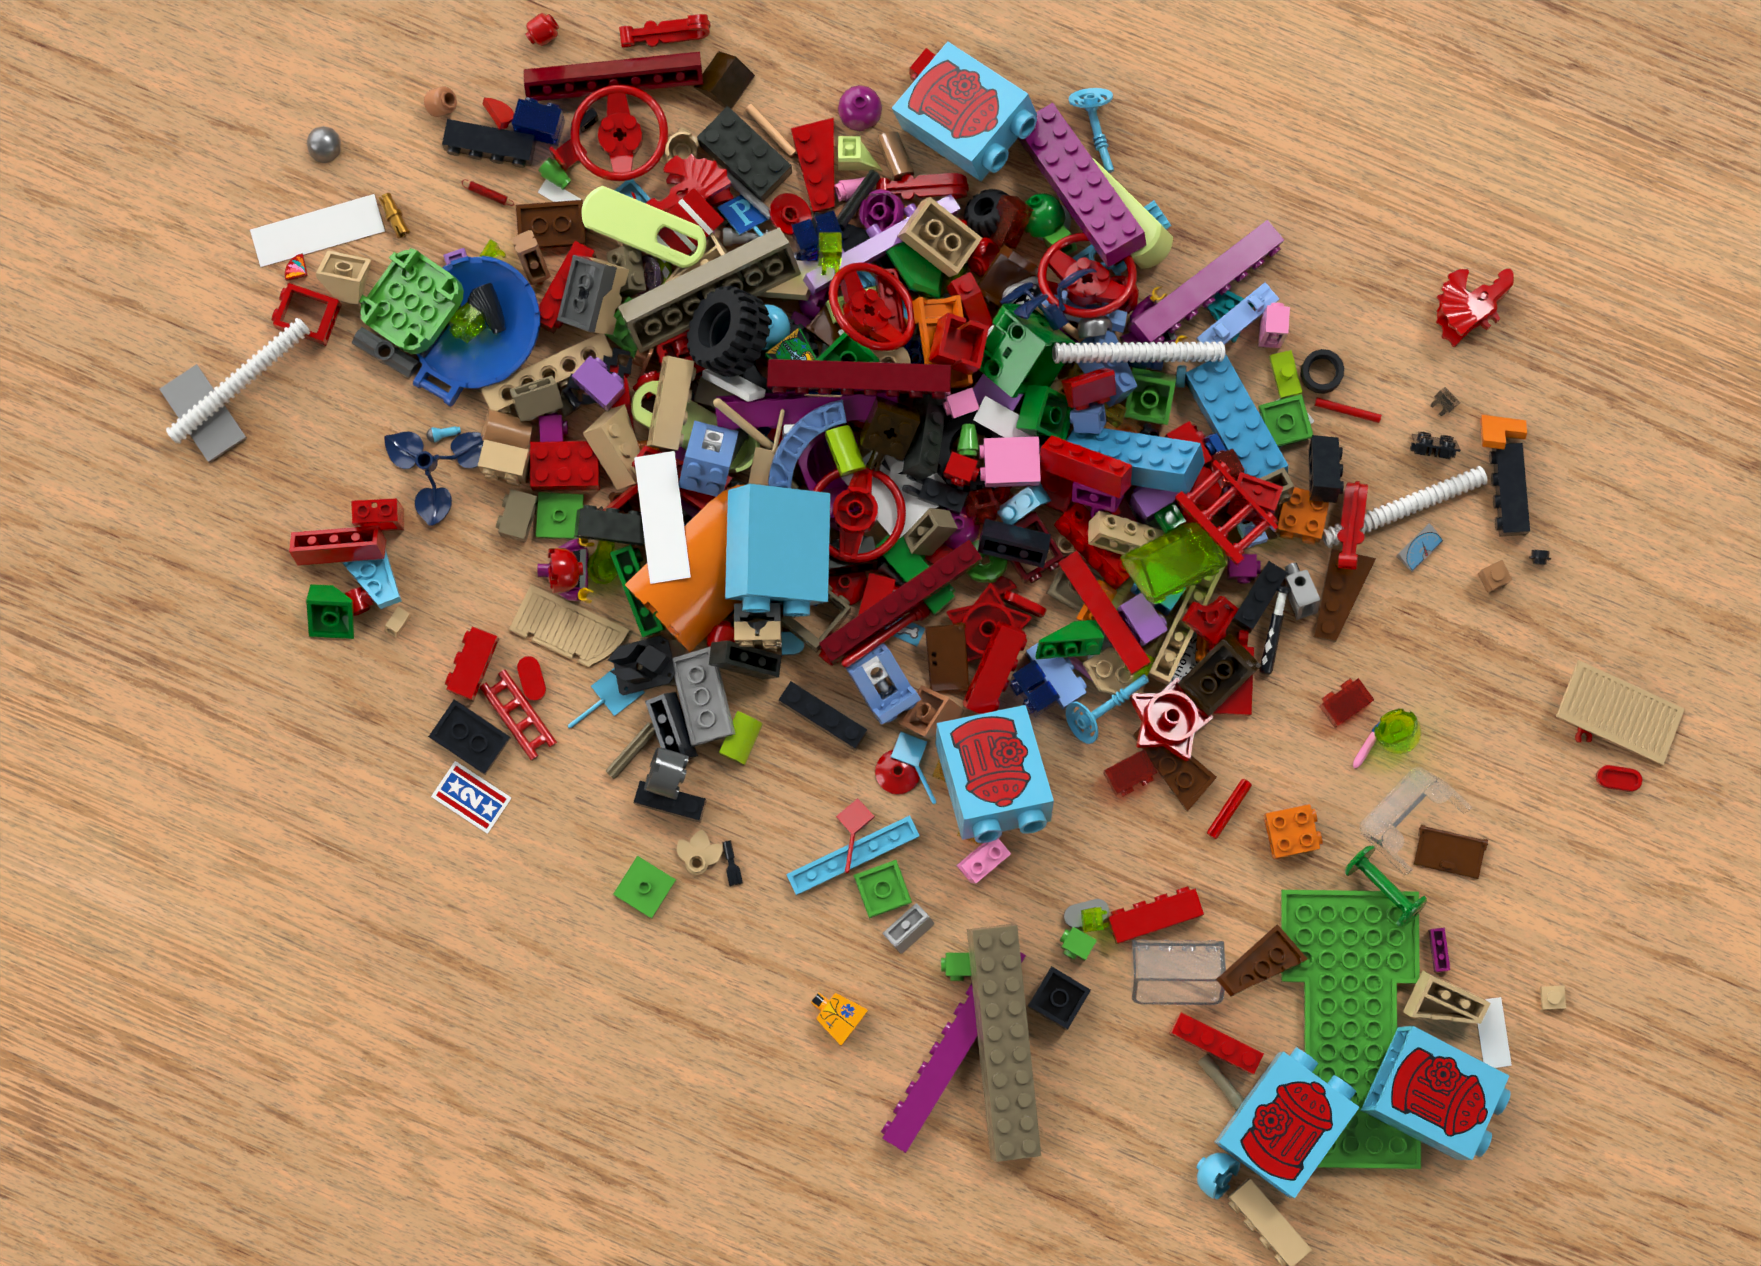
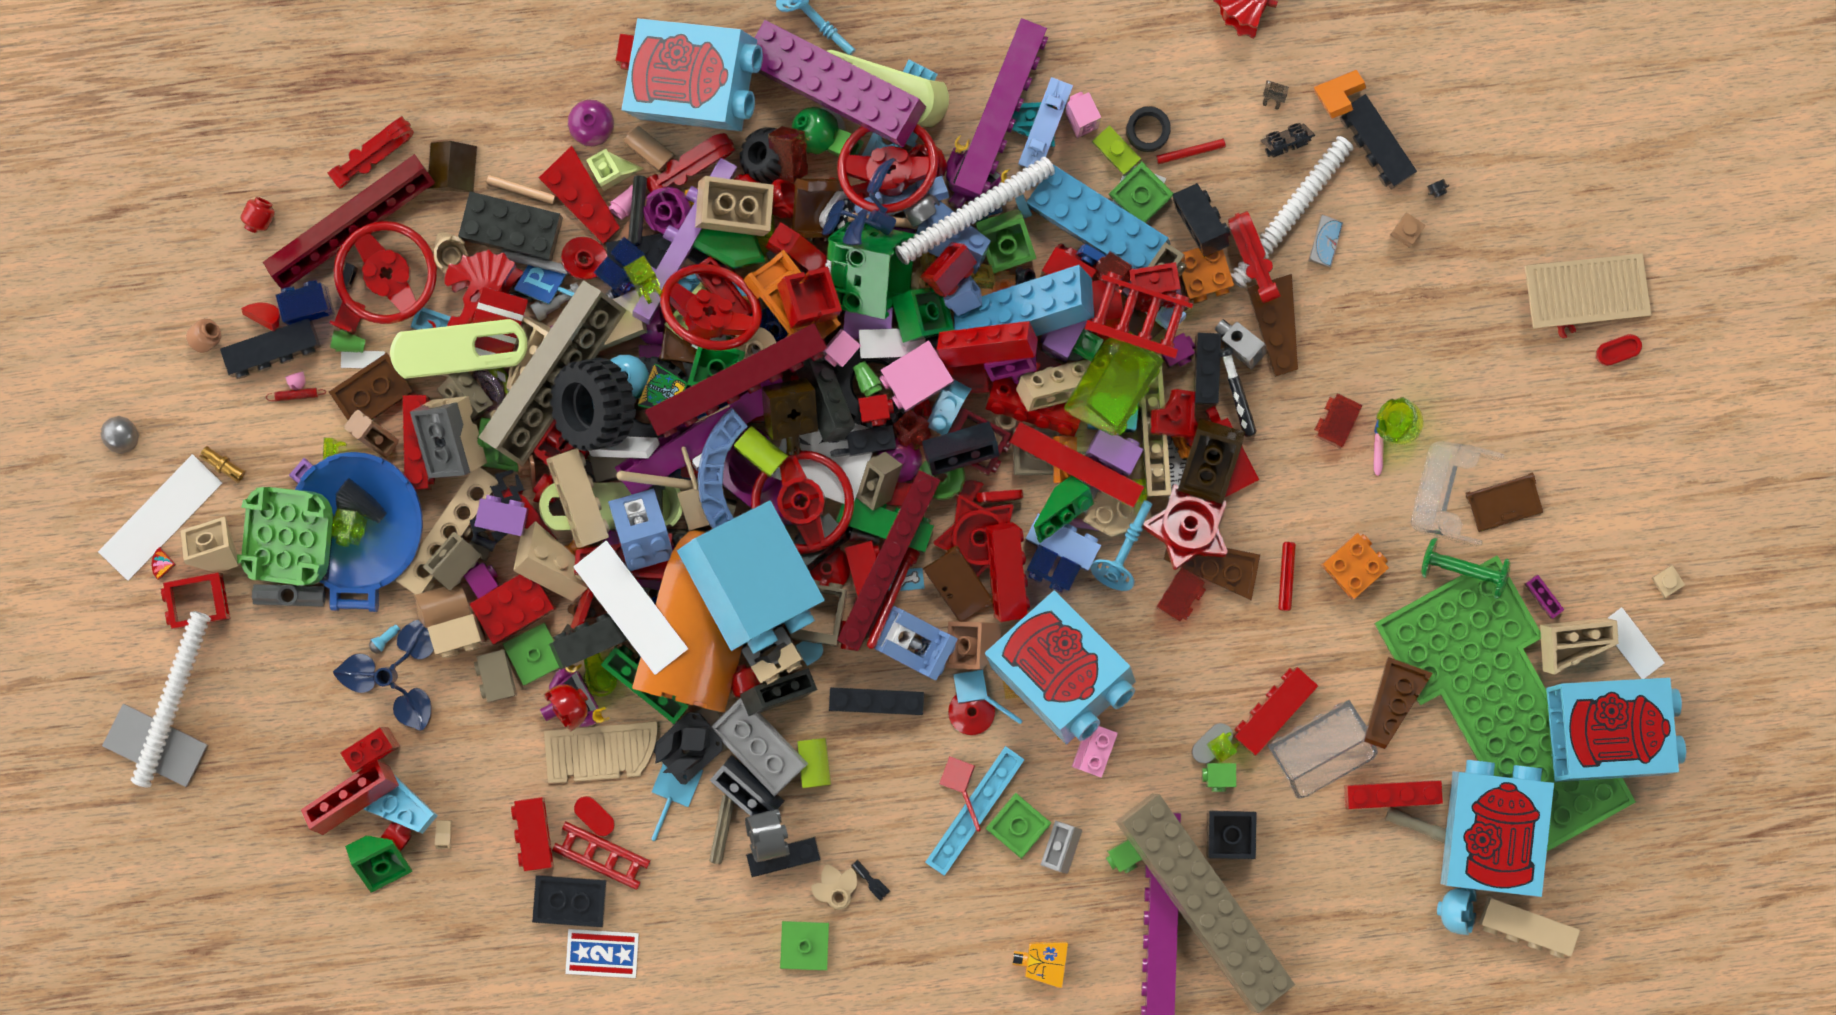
camera: 25 degrees left, 5 degrees up
(494, 181) = (296, 381): none -> bright pink hinge

